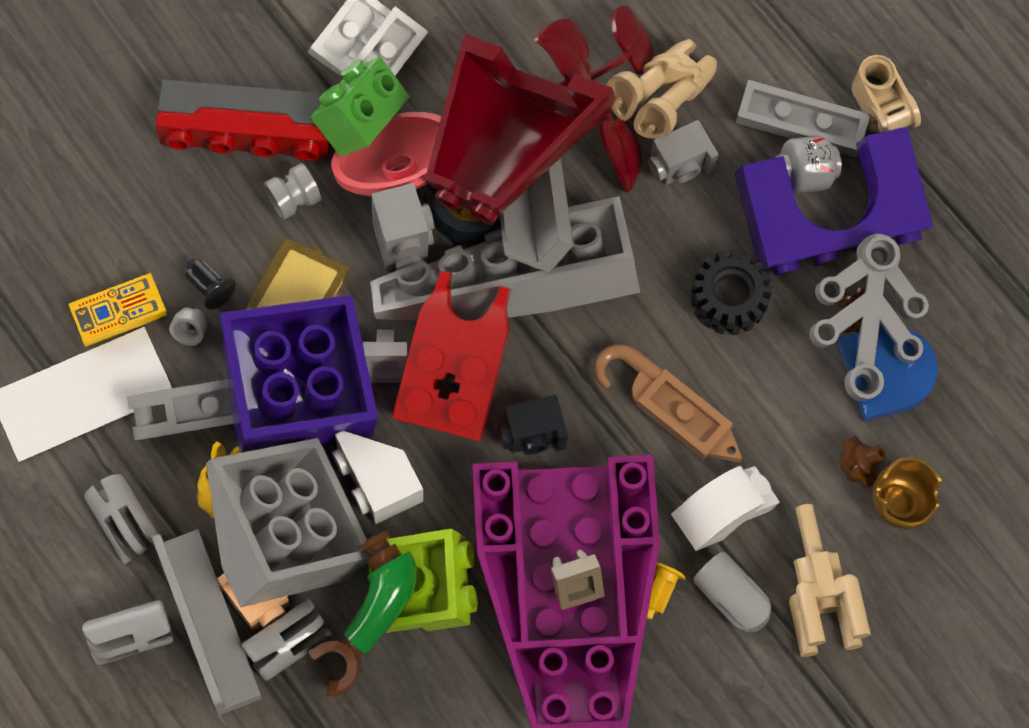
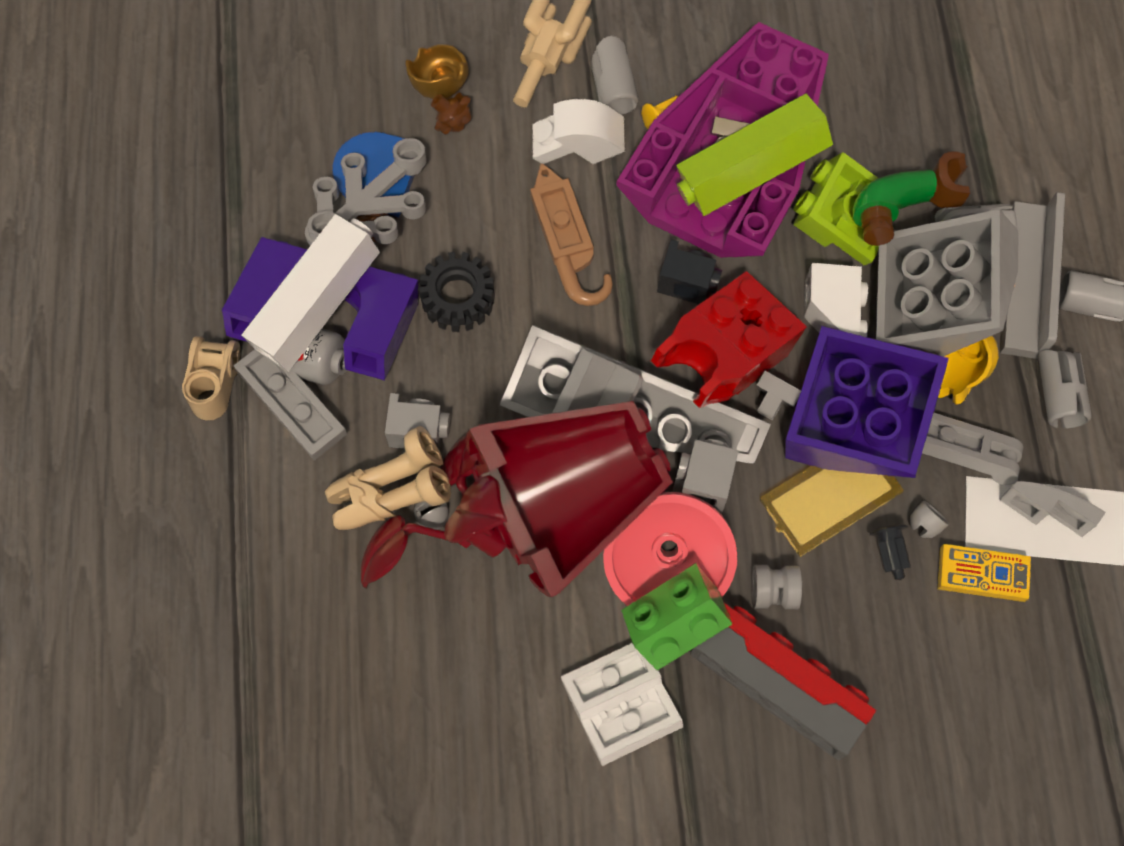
camera: 145 degrees left, 0 degrees up
(97, 390) = (1038, 500): none -> light grey slope
(537, 547) = (754, 155): none -> lime brick
(843, 182) = (312, 291): none -> white brick

